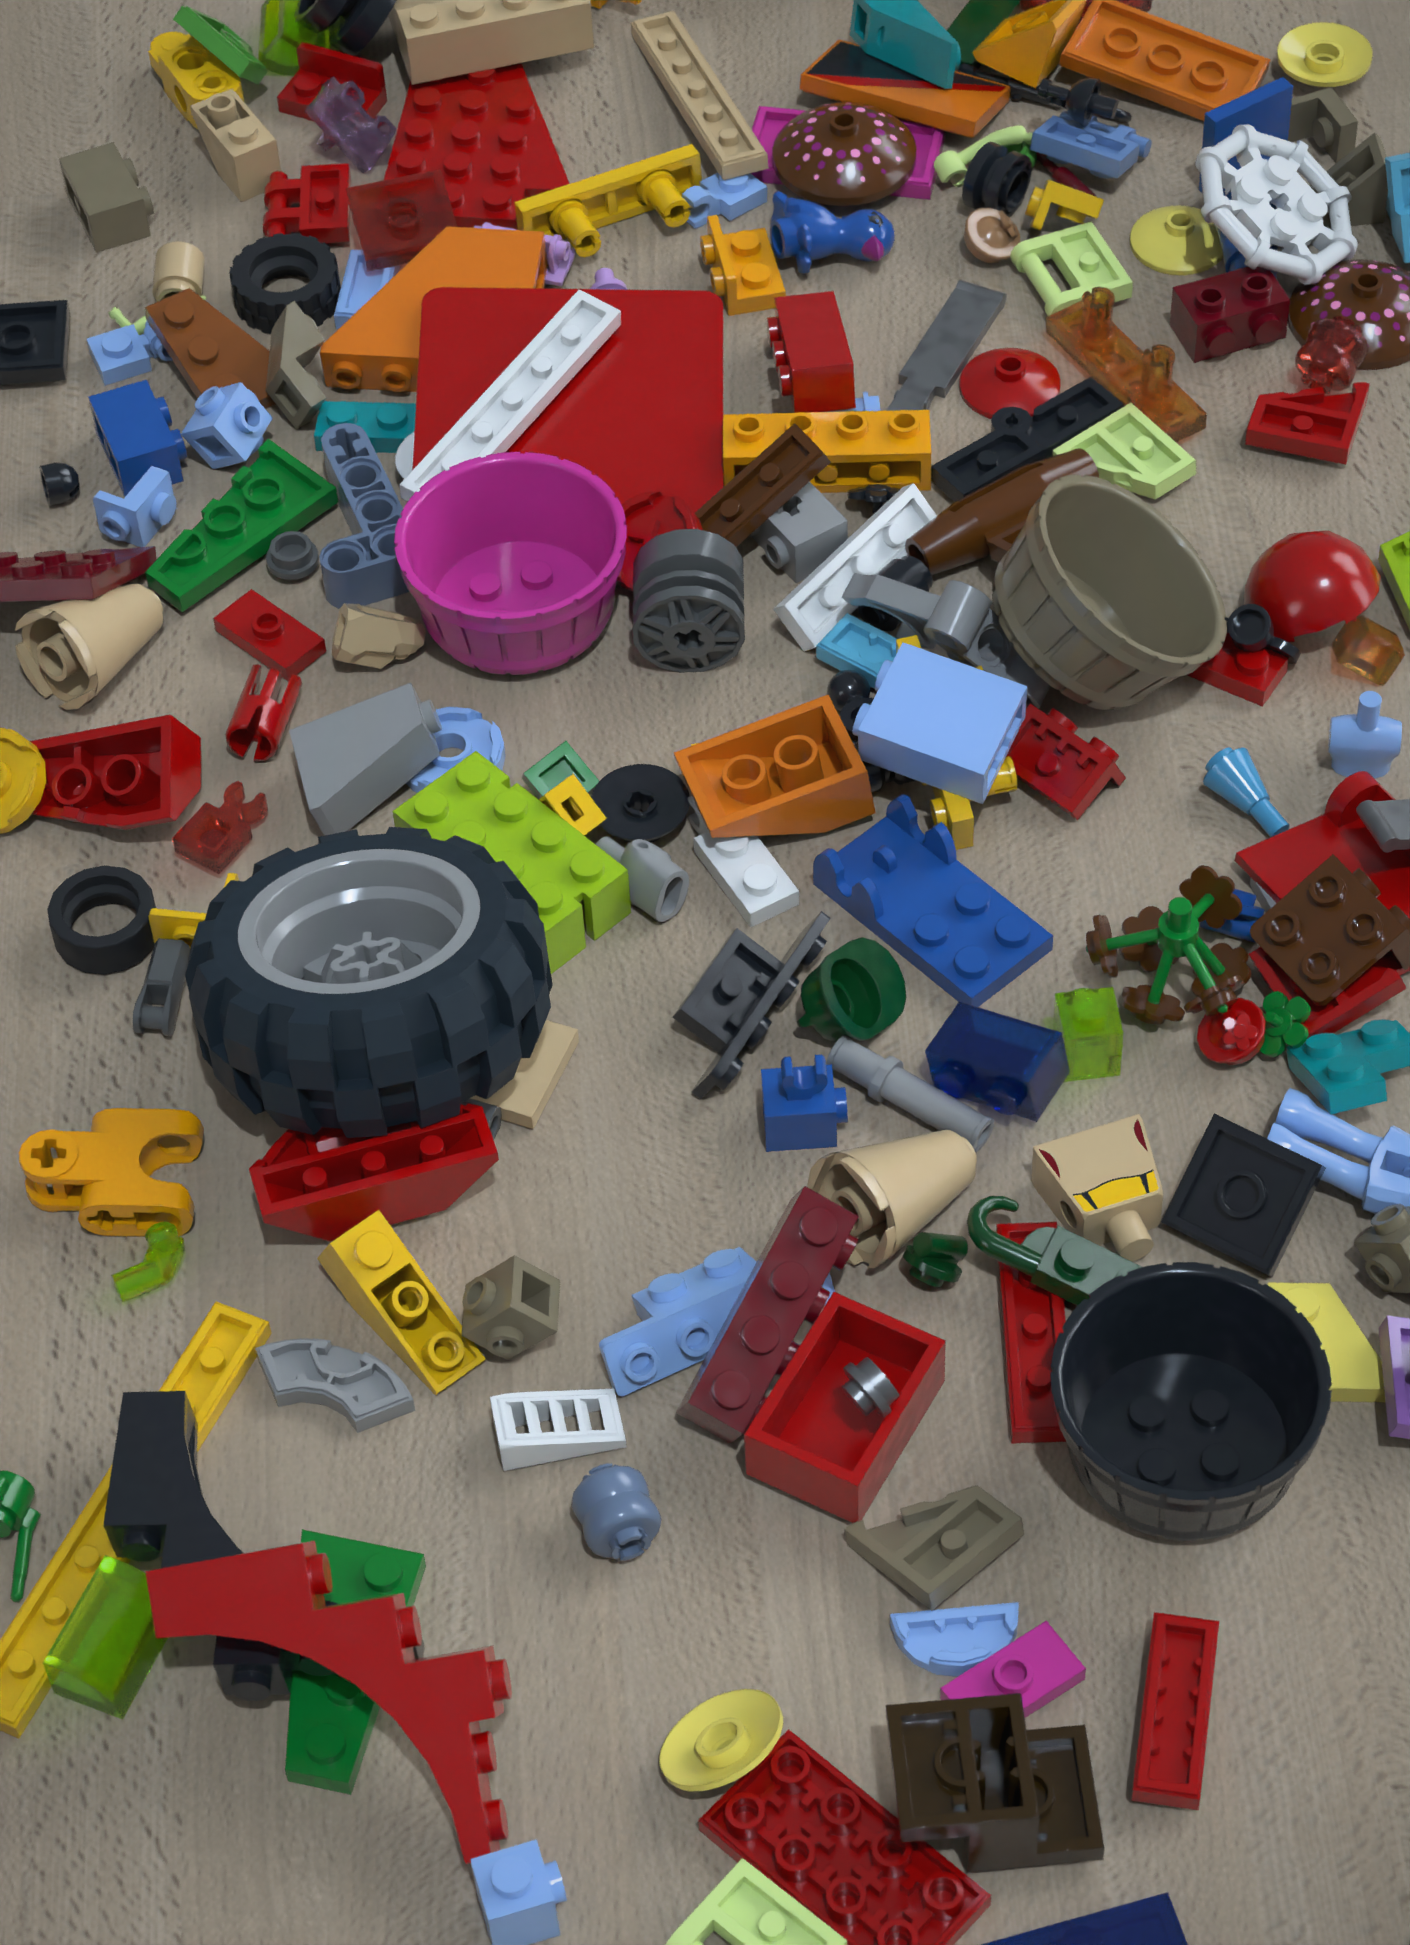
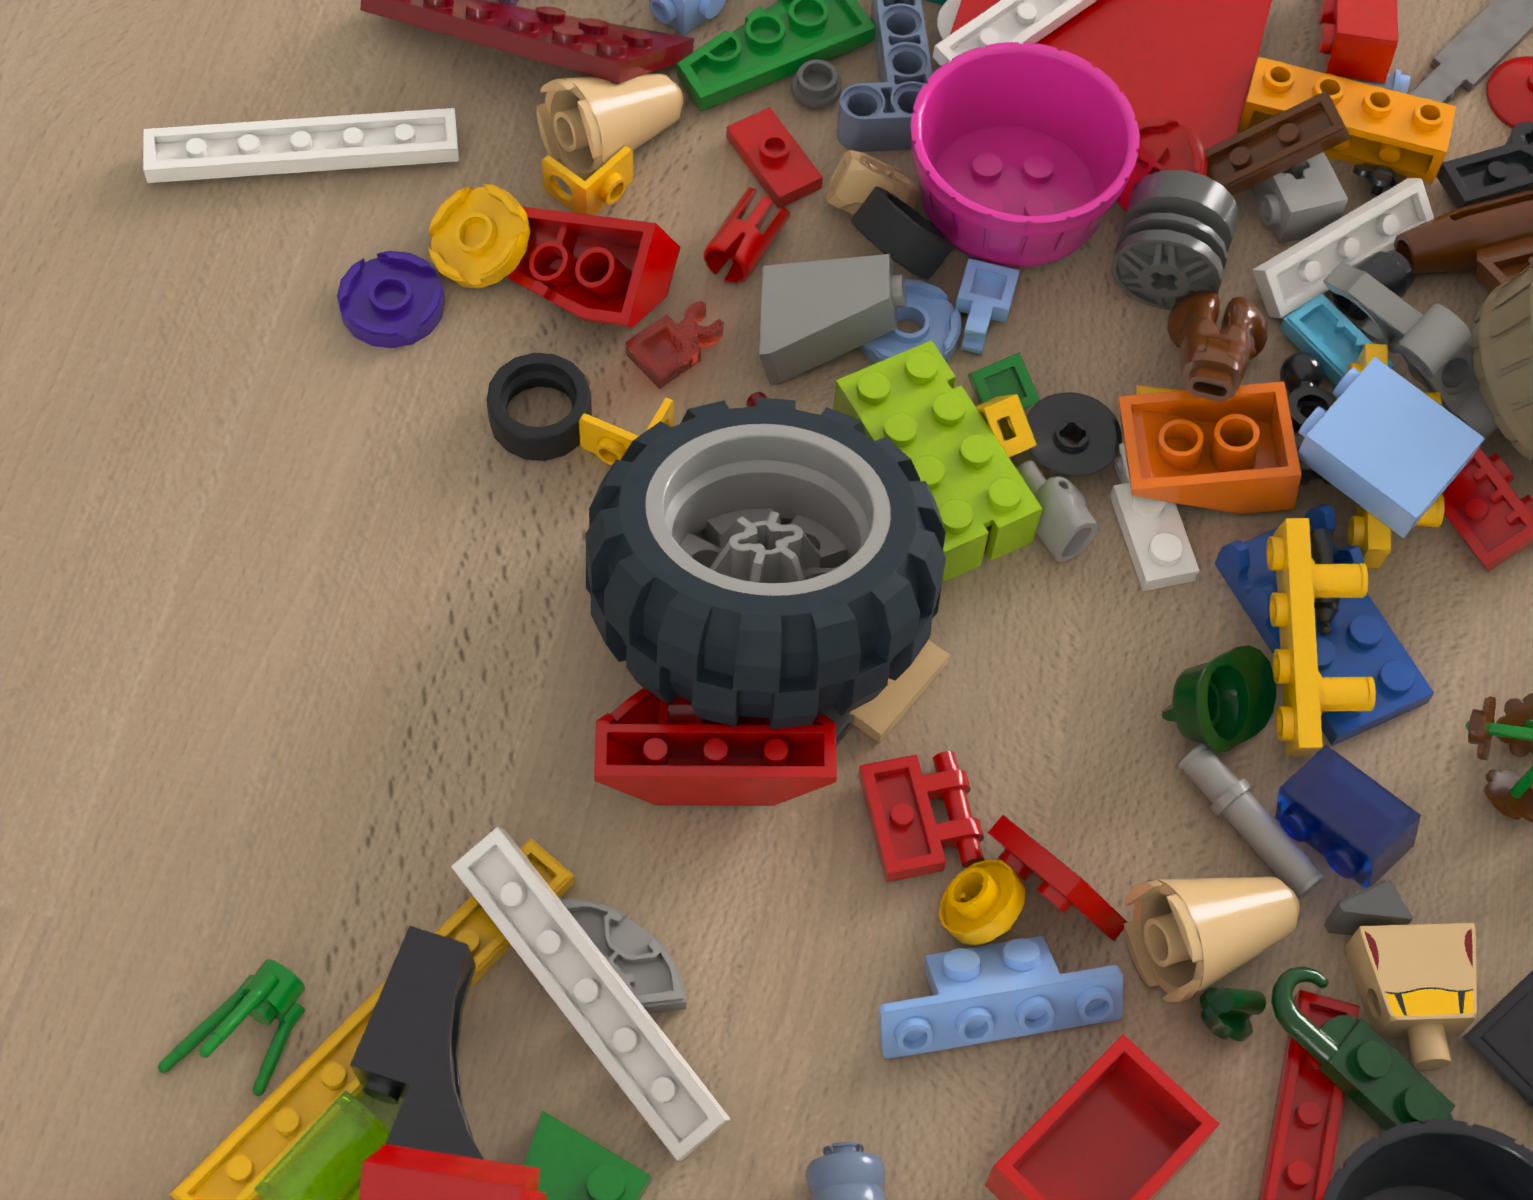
camera: 10 degrees right, 10 degrees up
(101, 709) = (597, 191): none -> yellow bracket
(110, 1170) = (471, 667): light orange piece -> none
(157, 1266) = (489, 780): clear neon green arm -> none
(162, 986) = (575, 490): dark grey bar -> none
(317, 1411) = (591, 994): none -> white plate
(399, 1302) = (703, 898): yellow slope -> none
(418, 664) = (902, 233): none -> black tyre
(511, 1307) = (805, 940): dark tan brick -> none
(518, 702) = (985, 296): none -> light blue plate
(535, 1407) = (799, 1048): white slope -> none
(577, 1186) = (903, 817): none -> red plate
(672, 1231) = (982, 902): none -> yellow plate
(727, 1182) = (1059, 883): none -> red wing
(735, 994) = (1113, 666): black bracket -> none
(755, 692) = (1212, 357): none -> reddish brown piece
(768, 1314) = (1053, 1035): dark red brick -> none
(801, 1106) = (1142, 805): blue brick -> none
(869, 1388) = (1131, 1158): flat silver plate -> none
(910, 939) = (1296, 663): none -> yellow plate
(921, 873) = (1323, 553): none -> black piece
(1041, 1126) = (1369, 907): none -> dark grey slope
(1090, 1032) = (1448, 809): clear neon green brick -> none

